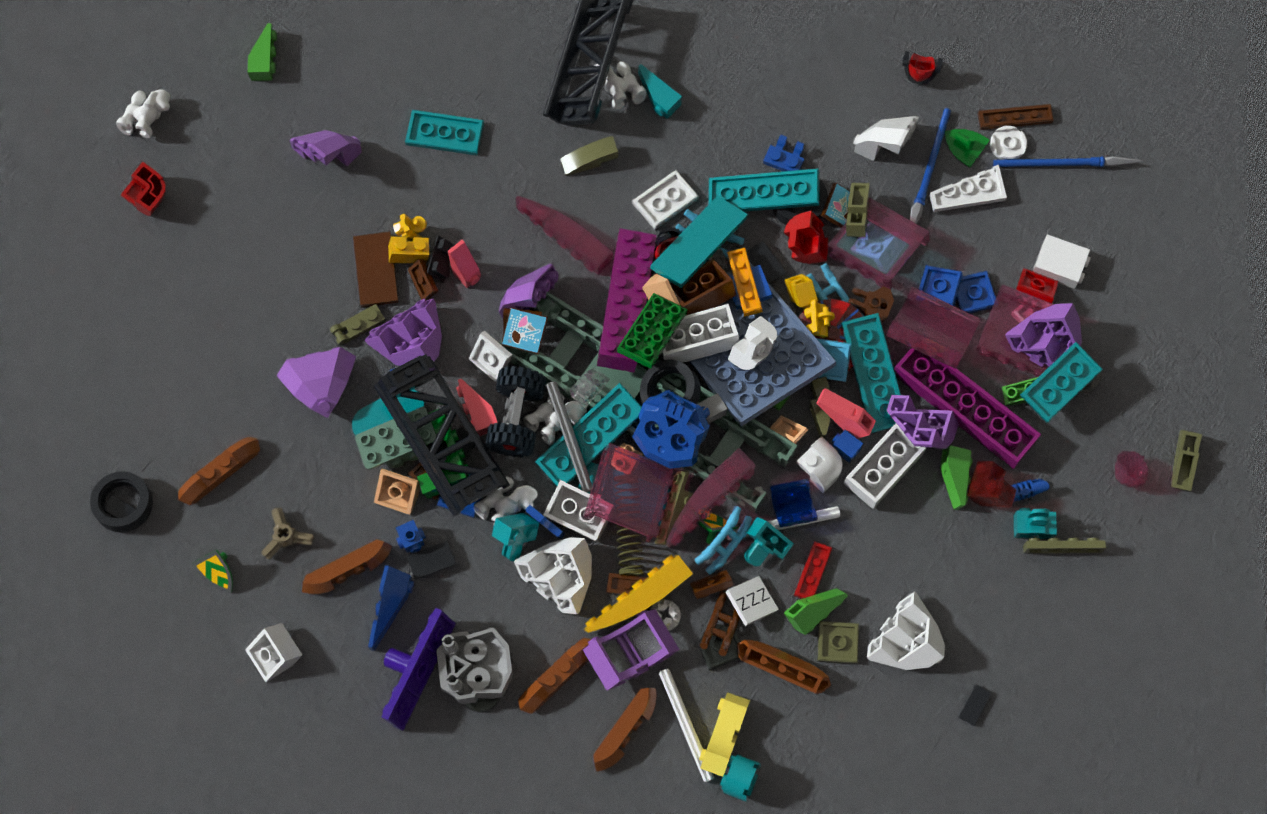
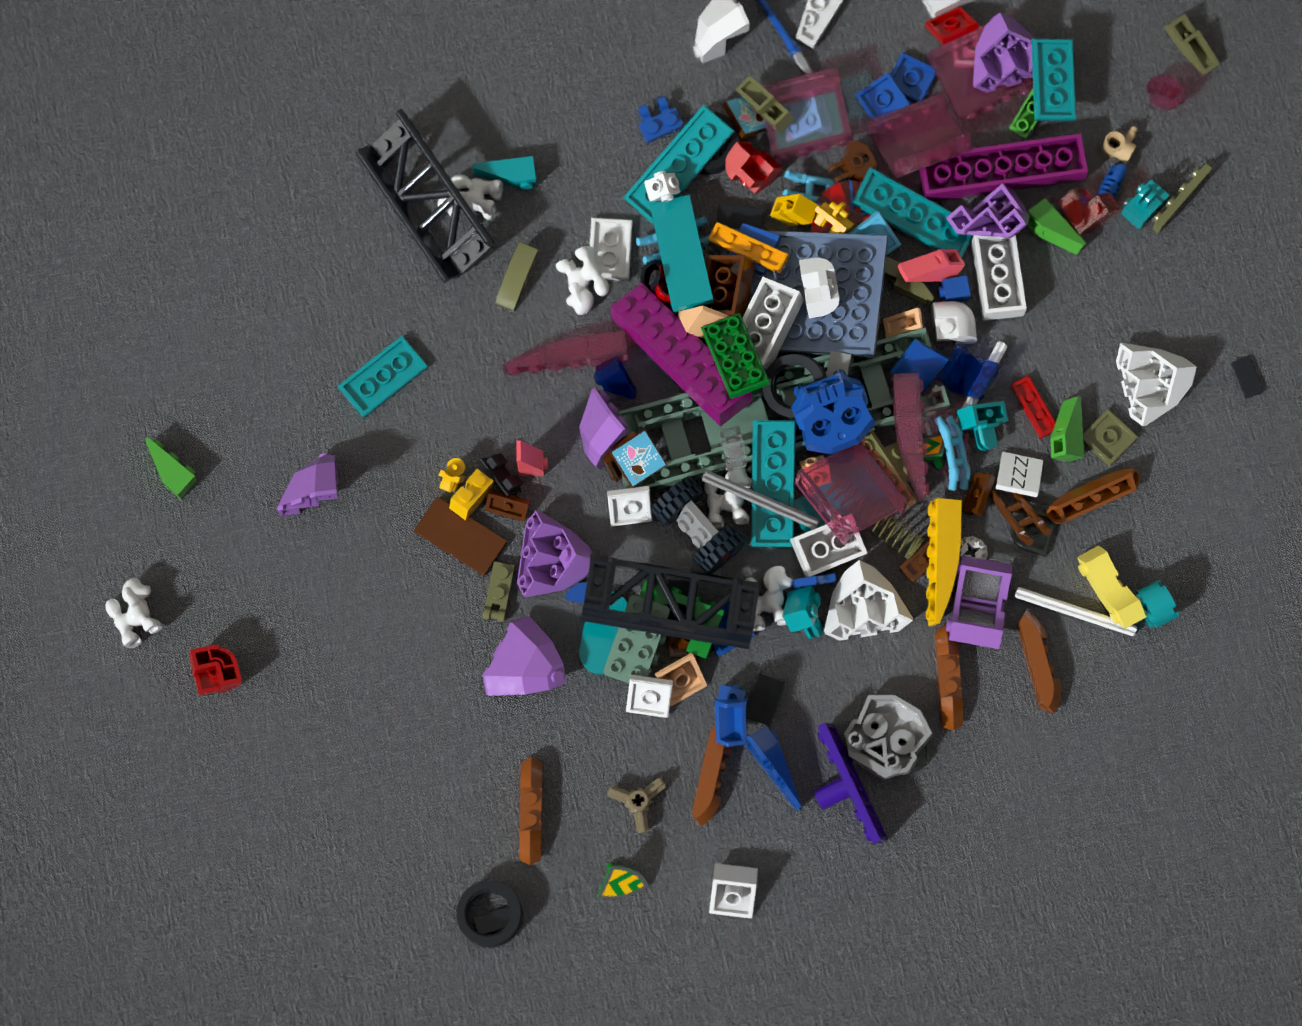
camera: 50 degrees left, 5 degrees up
(365, 479) = (649, 696): none -> white tile
(388, 546) = (730, 722): none -> blue panel
(478, 409) = (666, 554): coral slope -> none
(573, 275) = (614, 378): none -> clear blue slope
(625, 198) = (578, 280): none -> white animal
(735, 191) = (662, 186): none -> white brick
(769, 464) = (922, 360): none -> blue tile
(1062, 477) = (1125, 145): none -> tan piece

